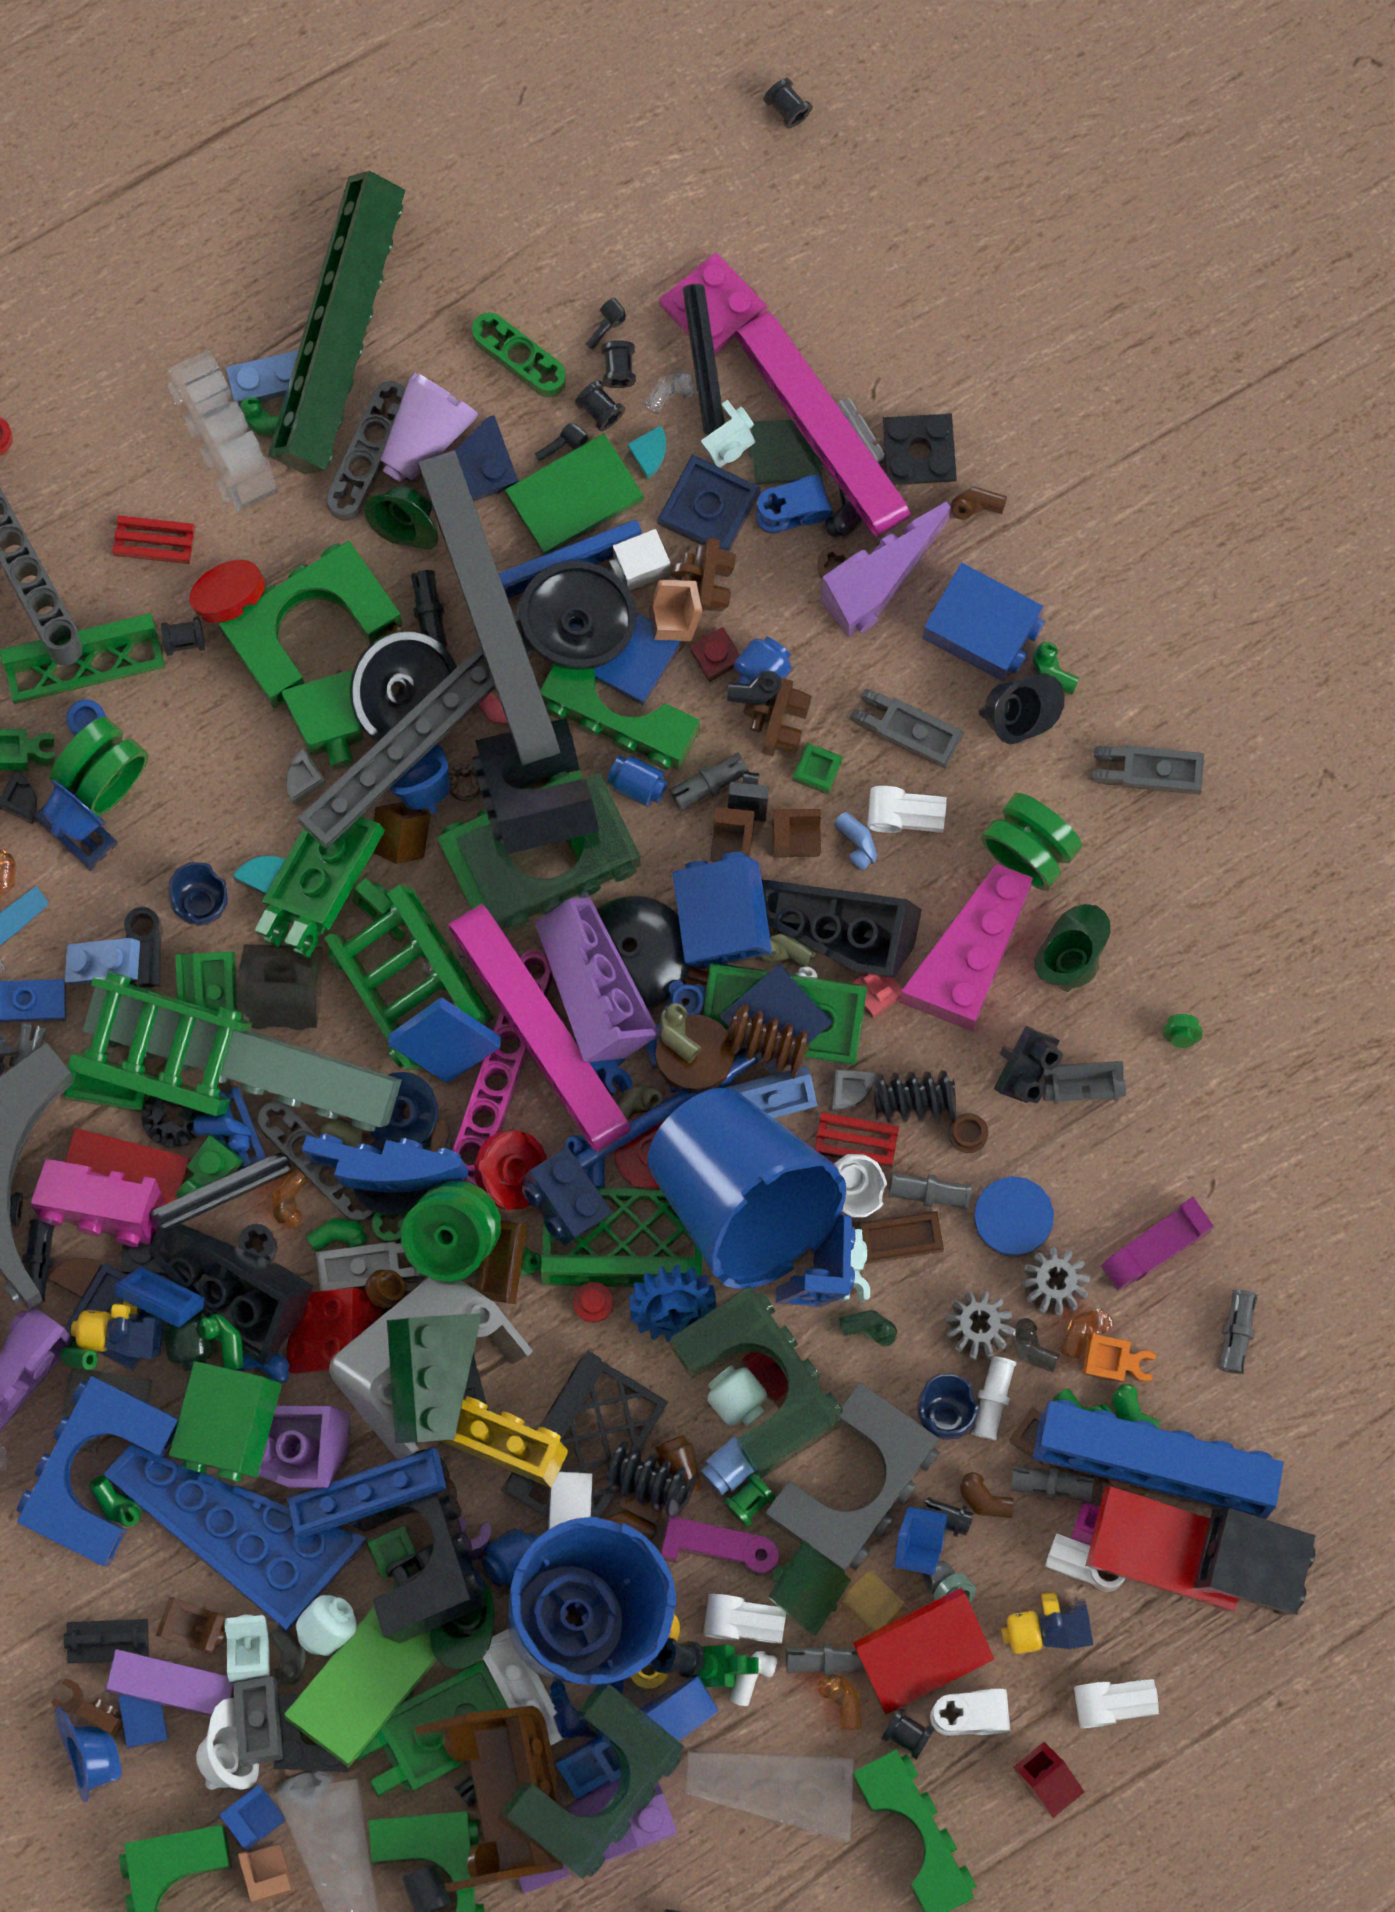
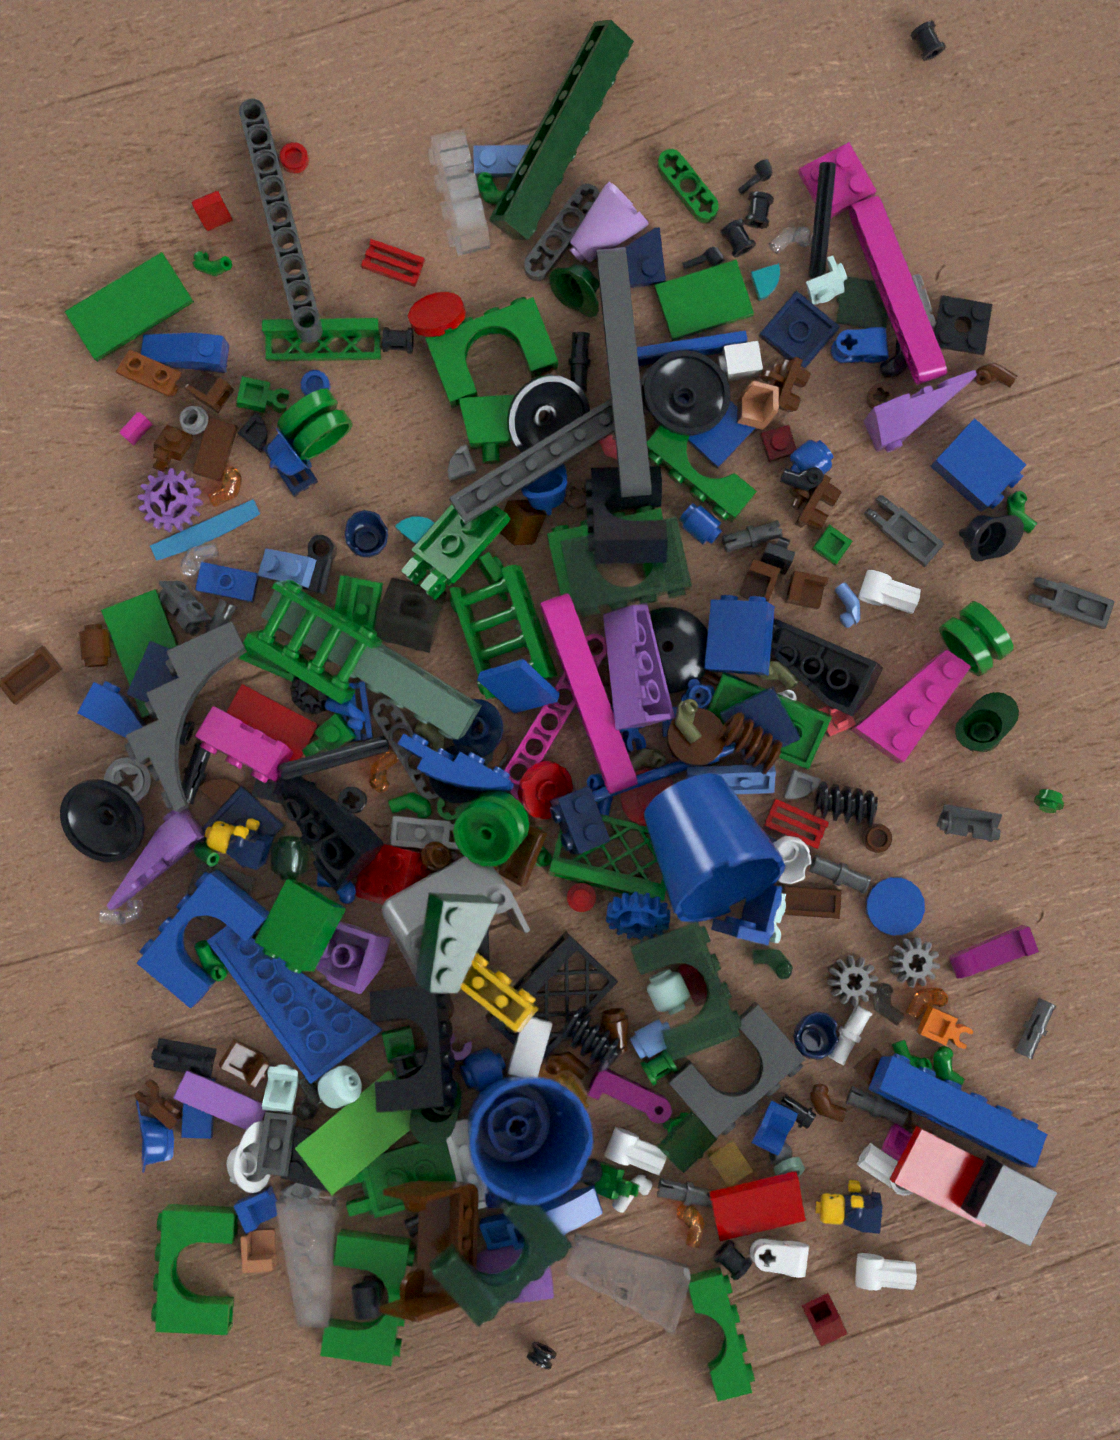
camera: 10 degrees right, 10 degrees up
(159, 1296) = (273, 824): blue tile -> none
(227, 1335) = (316, 867): green arm -> none
(366, 1493) = (388, 1004): blue tile -> none
(1026, 1065) = (931, 800): black hips -> none

